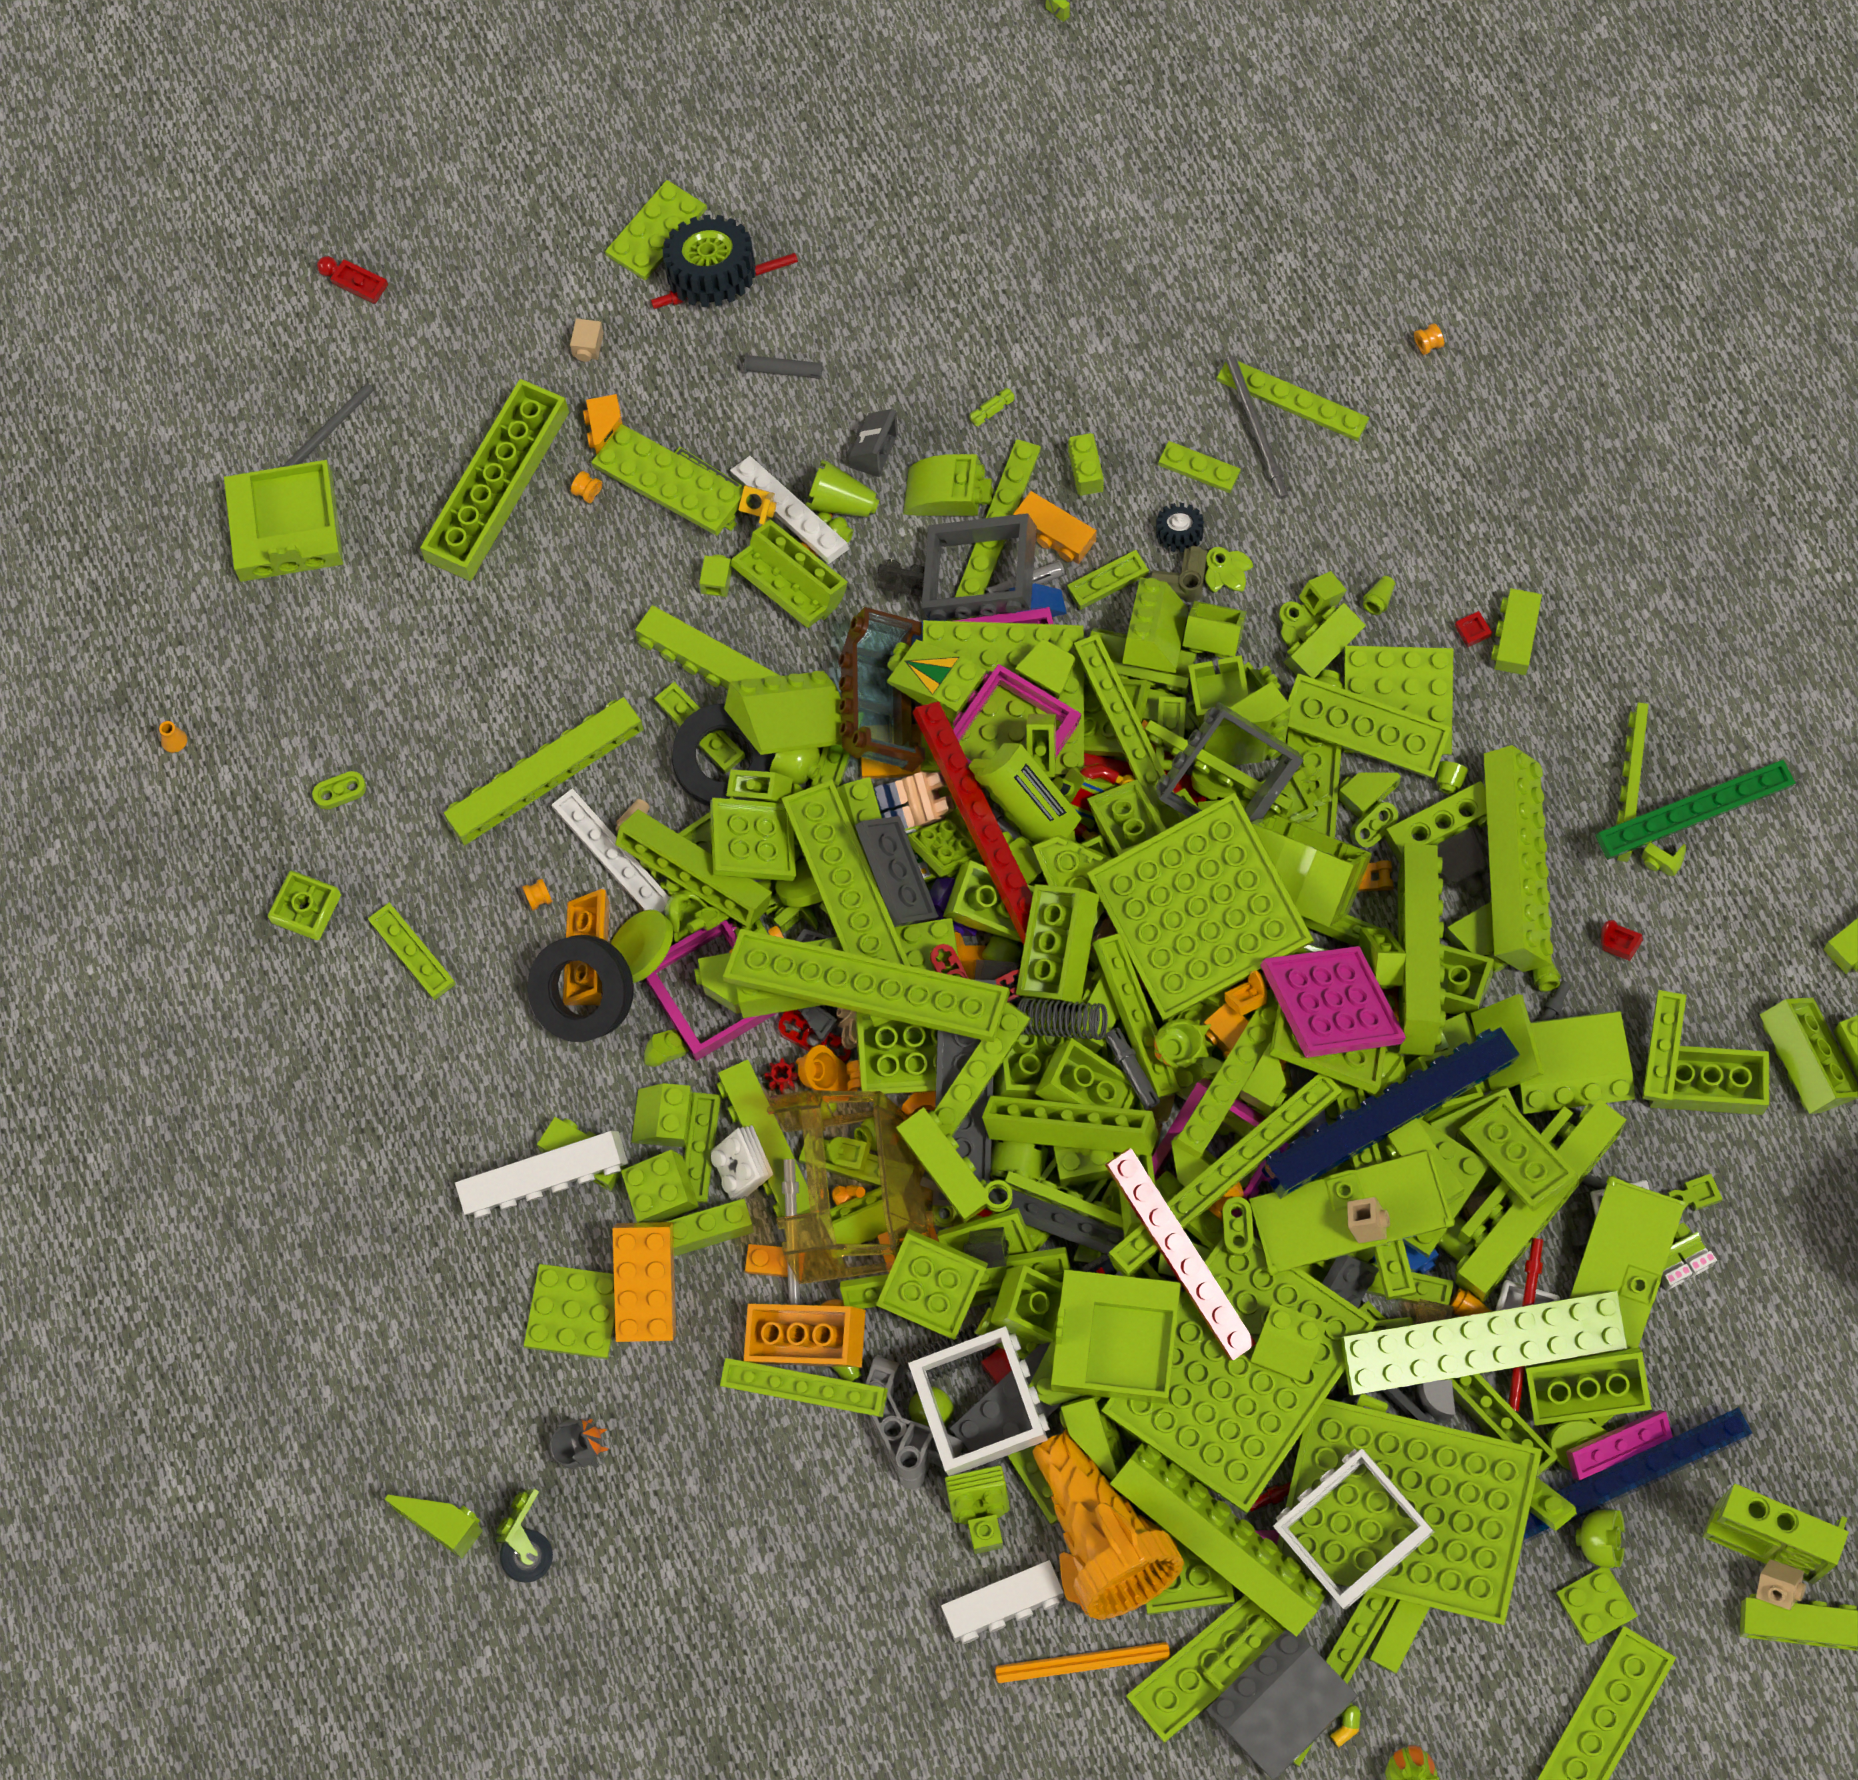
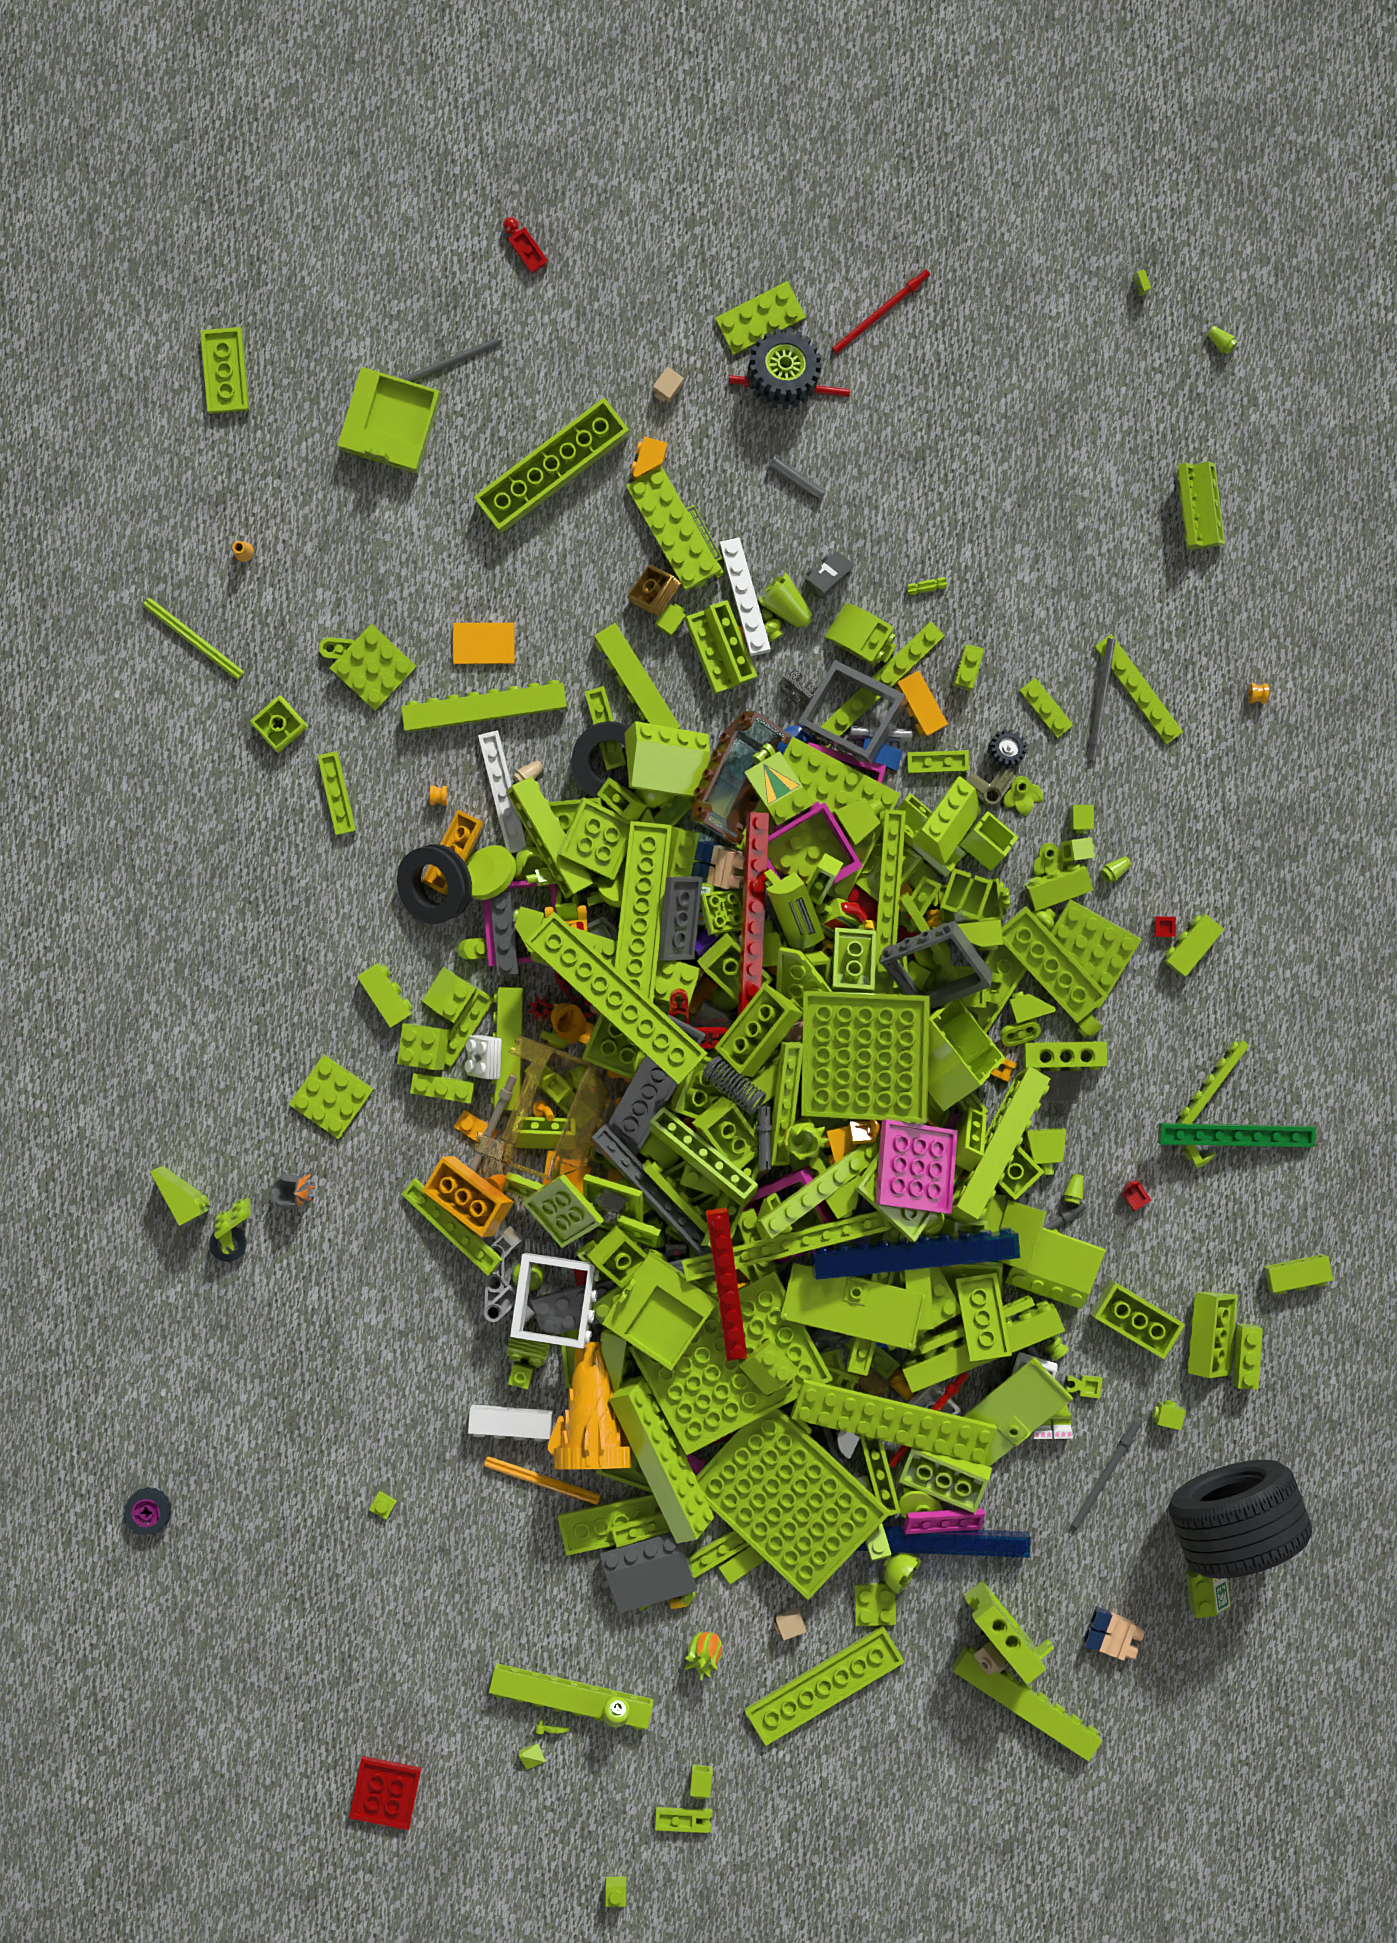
camera: 25 degrees right, 20 degrees up
(65, 559) = (225, 370): none -> lime plate
(156, 862) = (193, 638): none -> lime axle
(388, 789) = (373, 666): none -> lime plate
(508, 705) = (483, 643): none -> light orange tile
(541, 1173) = (350, 1000): white brick -> none
(586, 486) = (613, 503): light orange wheel -> none
(644, 1281) = (382, 1107): light orange brick -> none
(679, 550) = (653, 590): none -> pearl gold brick
(694, 1007) = (504, 934): none -> dark grey plate
(767, 506) = (727, 590): yellow bracket -> none
(806, 124) = (911, 286): none -> red bar
(947, 1168) = (609, 1144): lime hinge -> none
(980, 1070) = (653, 1094): lime plate -> none
(1177, 20) = (1223, 341): none -> lime cone
(1237, 1227) = (776, 1277): lime plate -> none
(1249, 184) = (1200, 505): none -> lime brick
(1307, 558) = (1081, 818): none -> lime brick
(1310, 1498) = (752, 1528): white window -> none
(1367, 1220) = (858, 1324): tan brick -> none
(1502, 1684) = (790, 1624): none -> tan brick
(1517, 859) = (1099, 1110): lime brick -> none
(1632, 1166) = (1055, 1348): none -> lime wheel
(1664, 1046) = (1119, 1290): lime plate -> none
(1787, 1237) = (1126, 1440): none -> dark grey bar
(1818, 1177) = (1168, 1414): none -> lime brick

